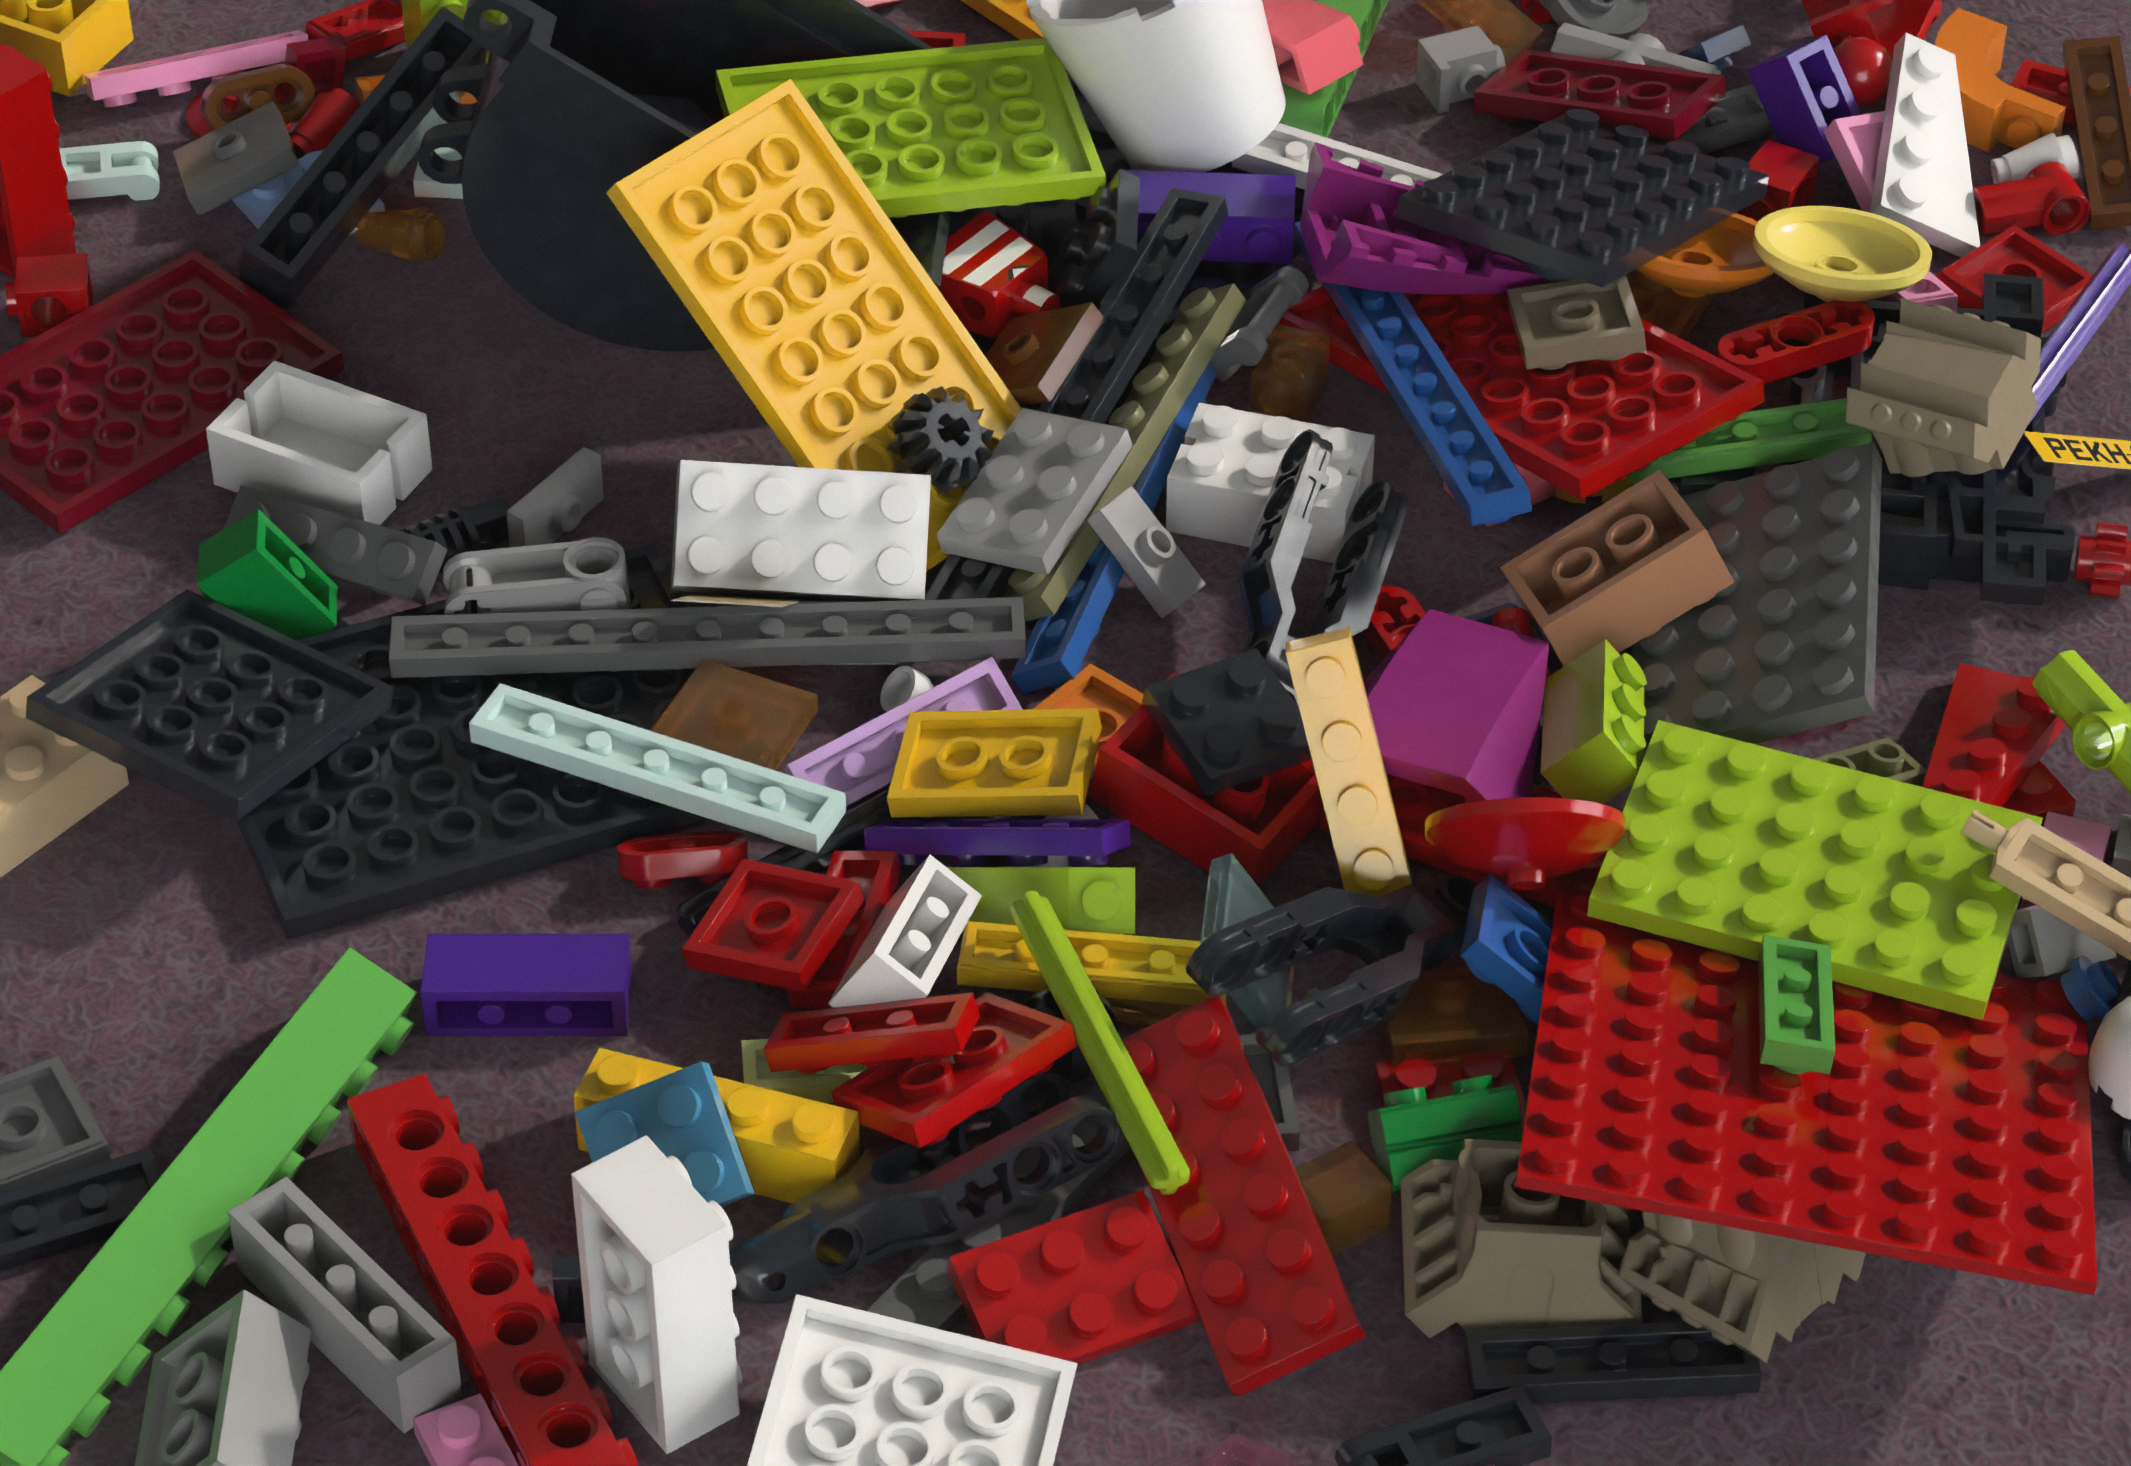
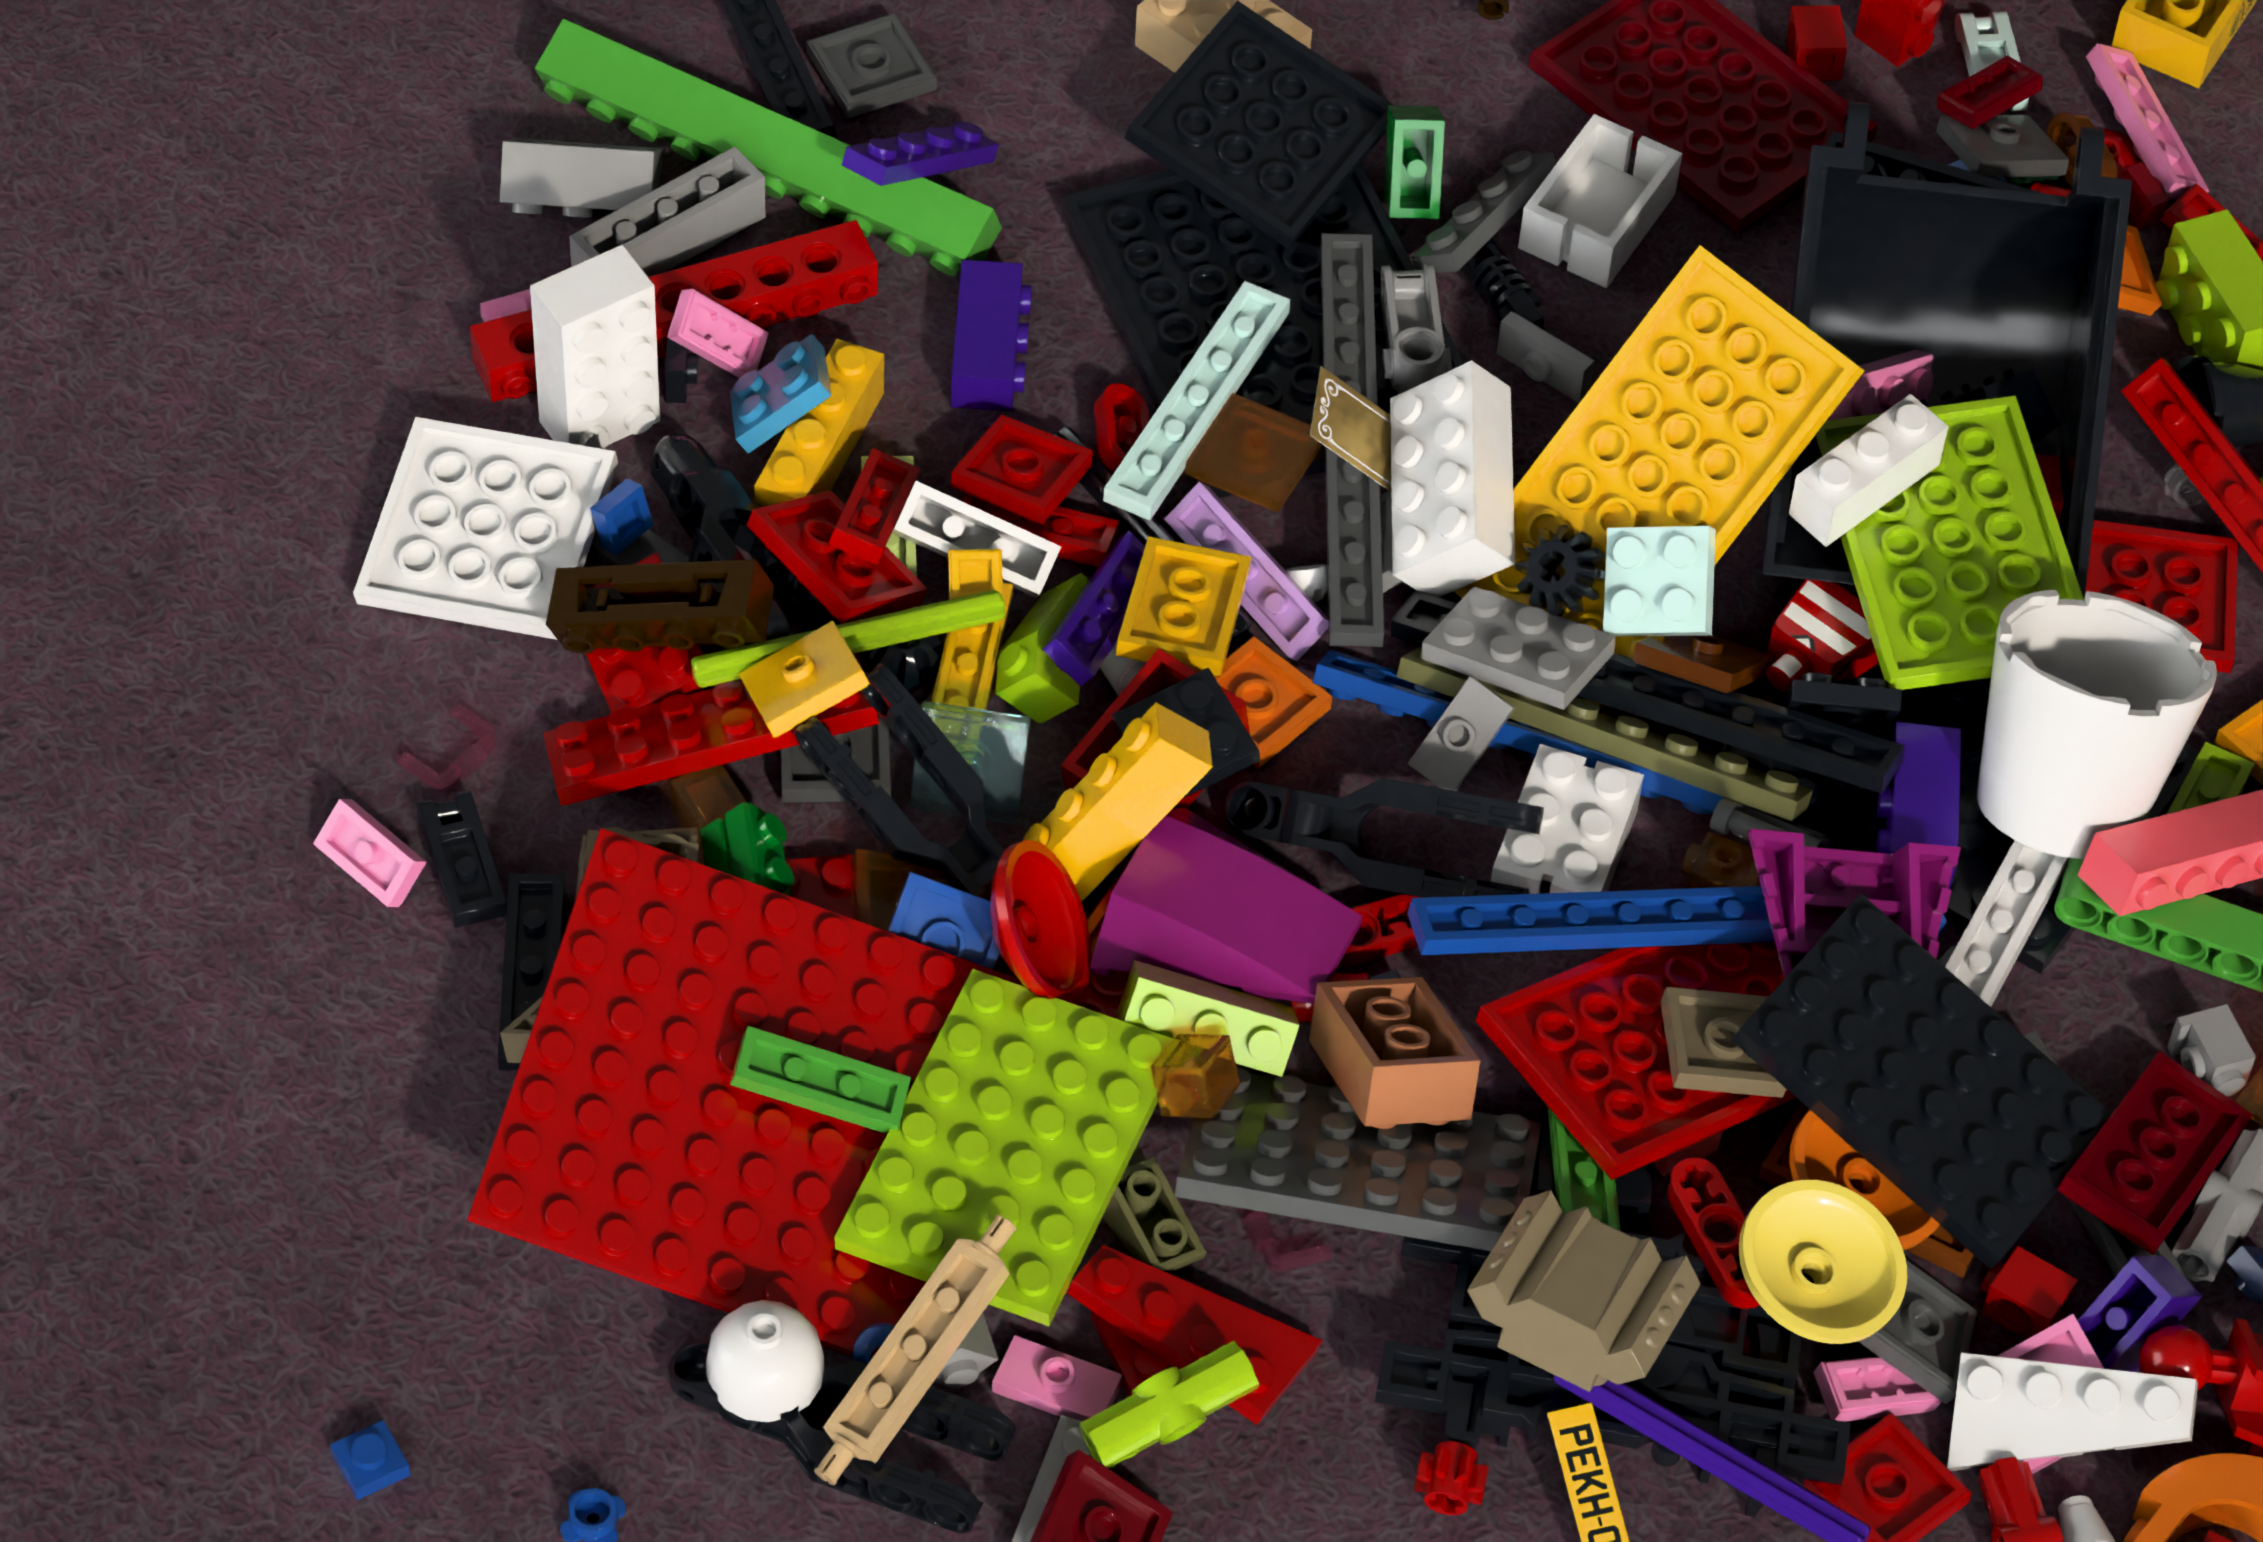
camera: 90 degrees right, 10 degrees up
(163, 154) = (1989, 92): none -> dark red plate
(242, 1028) = (920, 153): none -> dark purple plate
(549, 1228) = (717, 333): none -> bright pink plate
(885, 158) = (1868, 470): none -> white brick
(893, 1291) = (622, 516): none -> blue plate
(965, 348) = (1659, 581): none -> light aqua plate
(981, 933) = (974, 572): none -> yellow tile
(1092, 1110) = (660, 606): none -> dark brown brick
(1202, 1045) = (804, 679): none -> yellow plate
(1700, 699) = (1195, 1075): none -> clear orange brick

